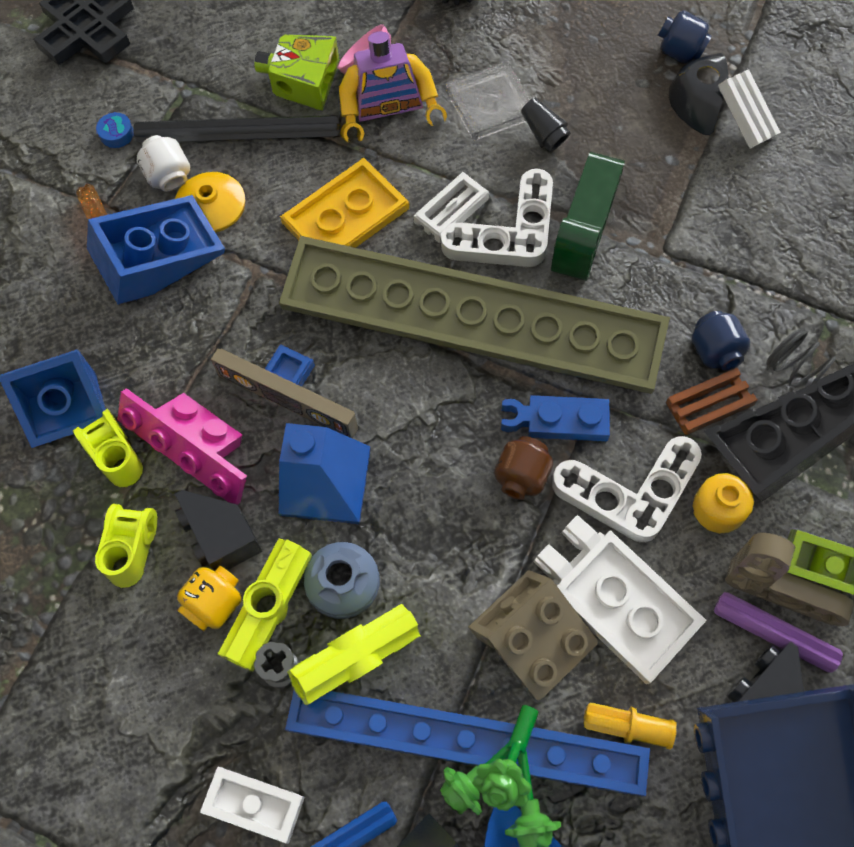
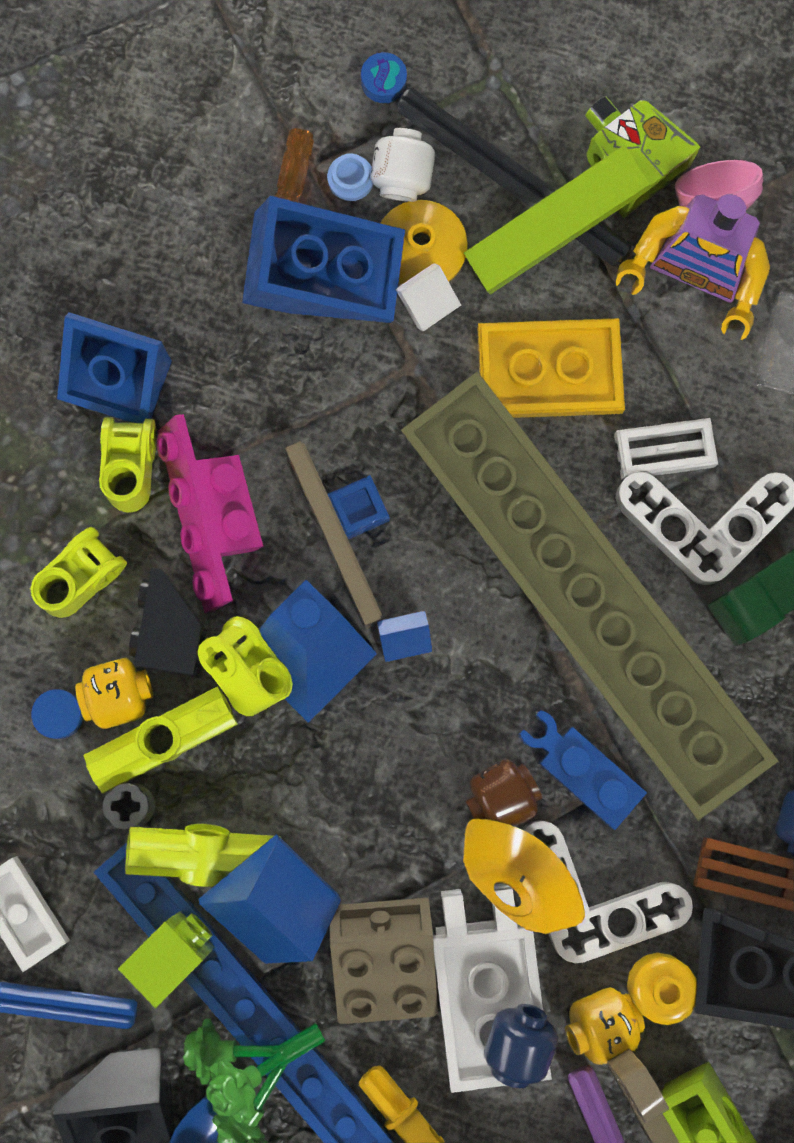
camera: 30 degrees right, 15 degrees up
(134, 192) = (350, 177): none -> light blue plate
(179, 646) = (56, 714): none -> blue tile
(236, 221) = (428, 297): none -> white tile
(282, 128) = (558, 219): none -> lime tile
(291, 512) = (247, 671): none -> neon yellow piece
(350, 598) = (276, 771): sand blue piece -> none
(379, 419) = (404, 636): none -> blue tile
(382, 728) = (168, 957): none -> lime brick
(429, 649) = (274, 904): none -> blue slope
(558, 495) = (504, 854): none -> yellow piece
(668, 606) = (520, 1046): none -> dark blue head
(708, 556) = (604, 1025): none -> yellow head

